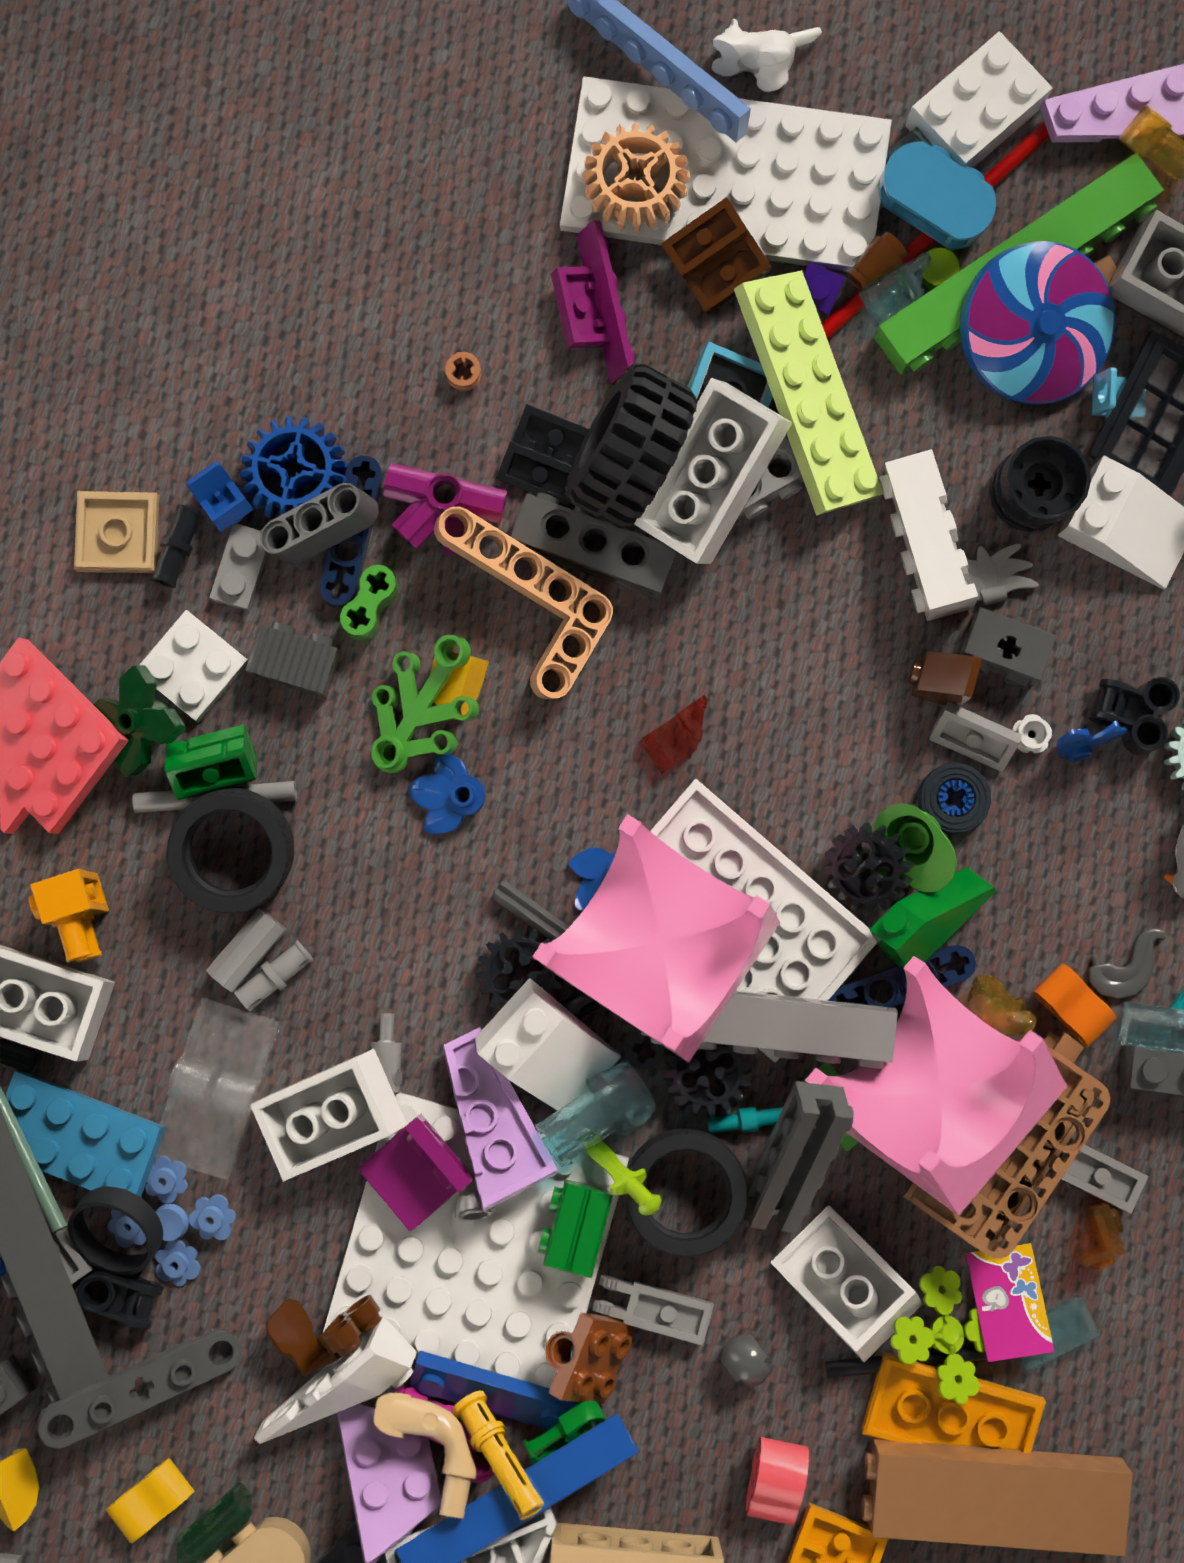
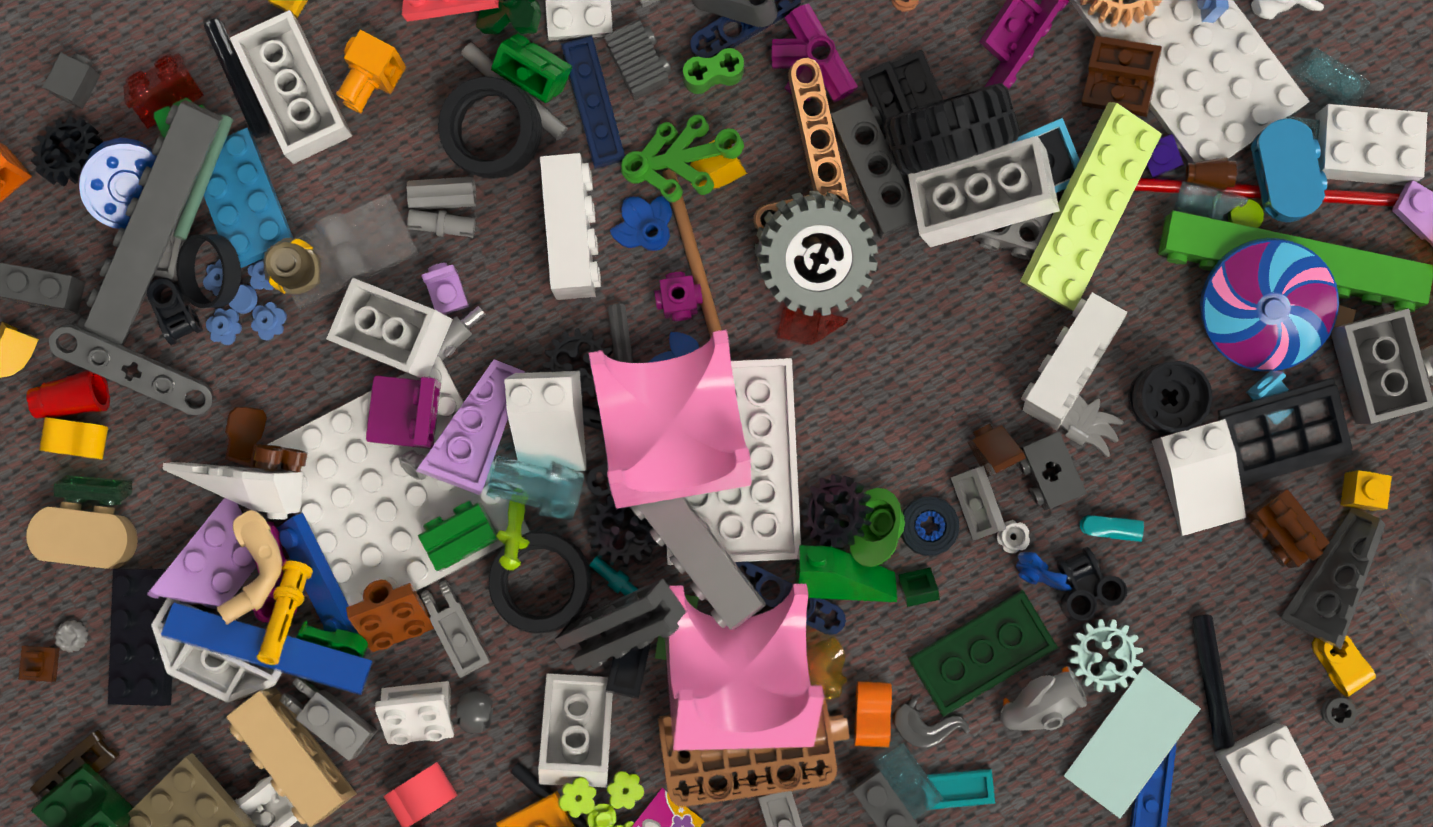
camera: 50 degrees right, 0 degrees up
(107, 1468) = (69, 395): none -> red plant
(187, 1150) = (292, 266): none -> dark tan hair
(293, 735) = (593, 102): none -> dark blue tile
(337, 1028) = (445, 288): none -> lavender bracket
(388, 865) = (568, 226): none -> white brick
(528, 783) = (694, 258): none -> medium nougat piece
(538, 841) = (678, 308): none -> magenta brick
(590, 672) = (782, 241): none -> light grey wheel
(632, 1500) = (330, 720): none -> light grey hinge
(696, 1414) = (415, 713): none -> white bracket
(841, 1191) = (628, 672): none -> black tile
(889, 81) = (1332, 78): none -> clear light blue plate
(1000, 858) = (918, 587): none -> dark green plate
(1103, 641) = (1112, 527): none -> teal bar
(1108, 857) = (982, 653): none -> dark green tile

